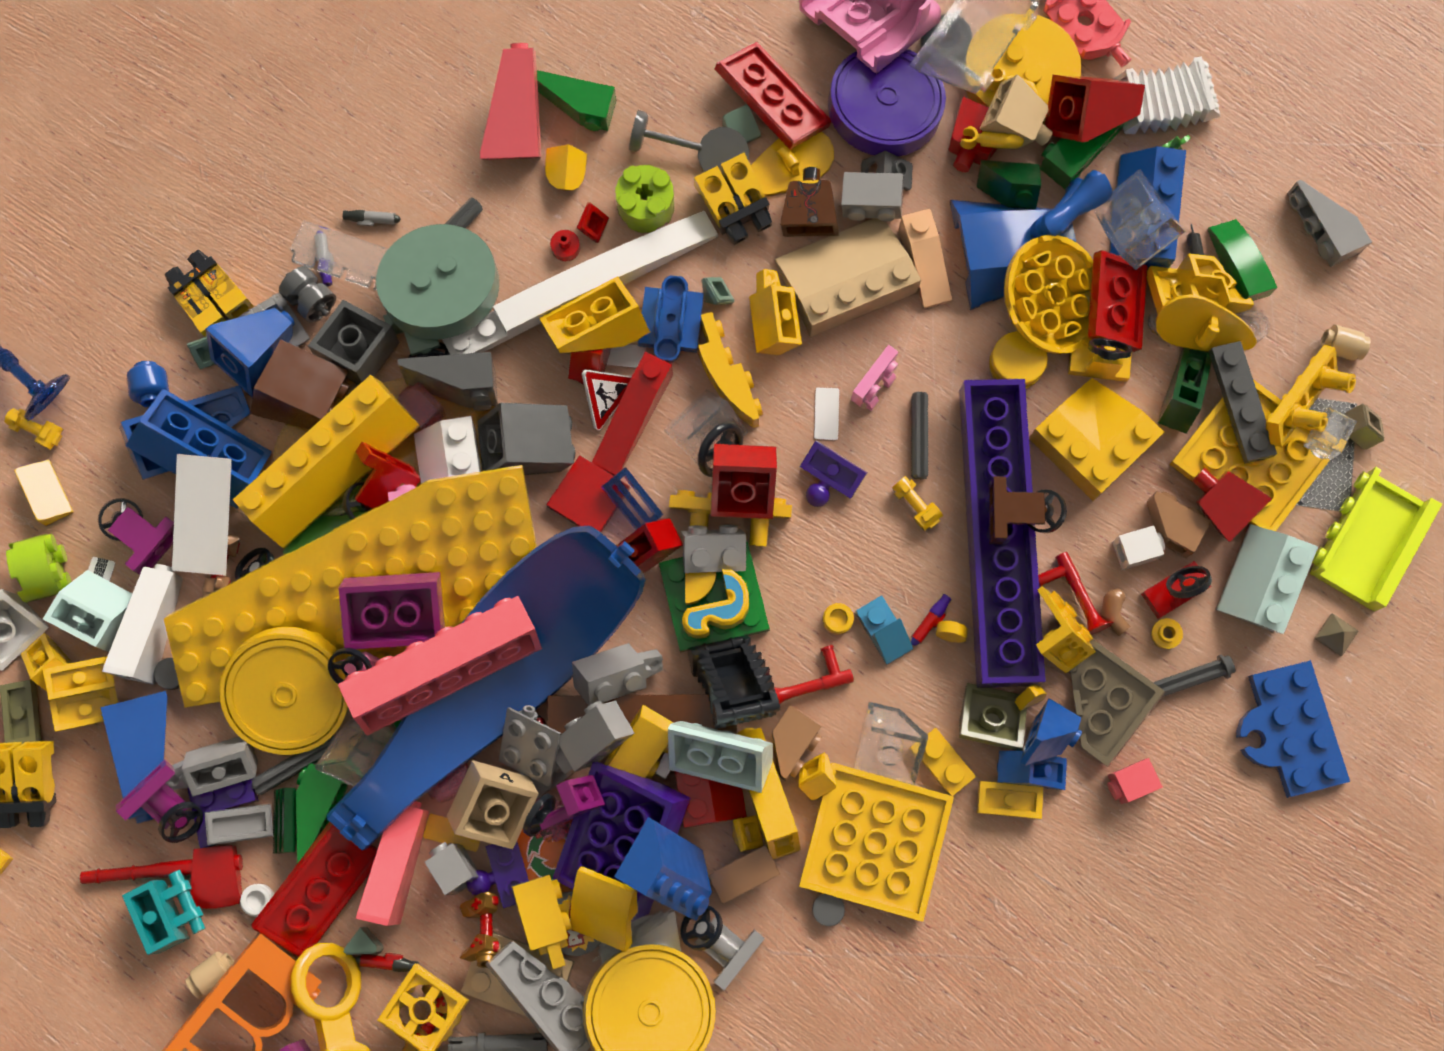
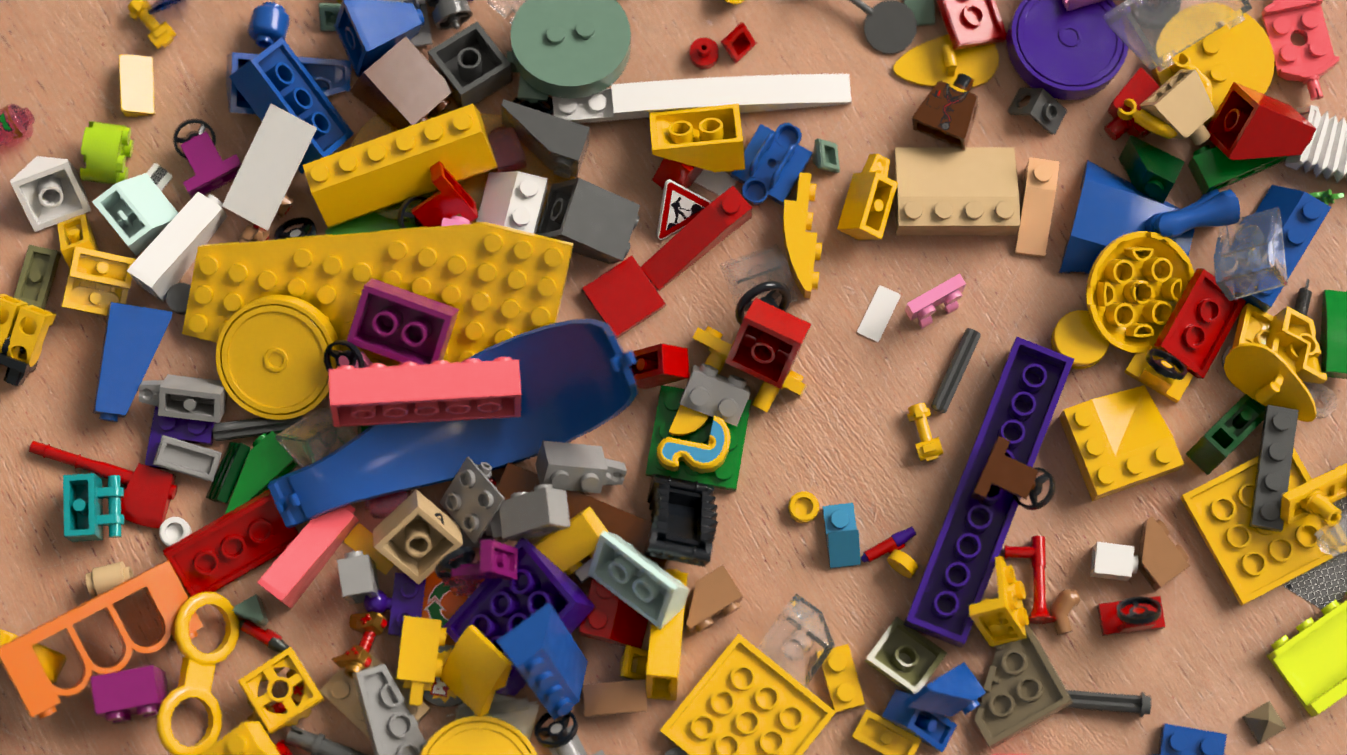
camera: 25 degrees right, 0 degrees up
(162, 804) = (129, 411): magenta piece -> none
(615, 480) = (672, 311): clear blue tile -> none
(641, 183) = (801, 24): lime brick -> none
(737, 207) = (883, 84): yellow hips -> none
(817, 777) = (719, 641): yellow slope -> none
(832, 471) = (858, 369): dark purple plate -> none
(834, 679) = (774, 560): red piece -> none
(872, 196) = (1012, 126): light grey brick -> none
(1031, 696) = (948, 653): yellow tile -> none
(1159, 638) = (1098, 660): yellow plate -> none
(1228, 501) = (1214, 554): red torso -> none
(1267, 578) = (1218, 640): light aqua slope -> none

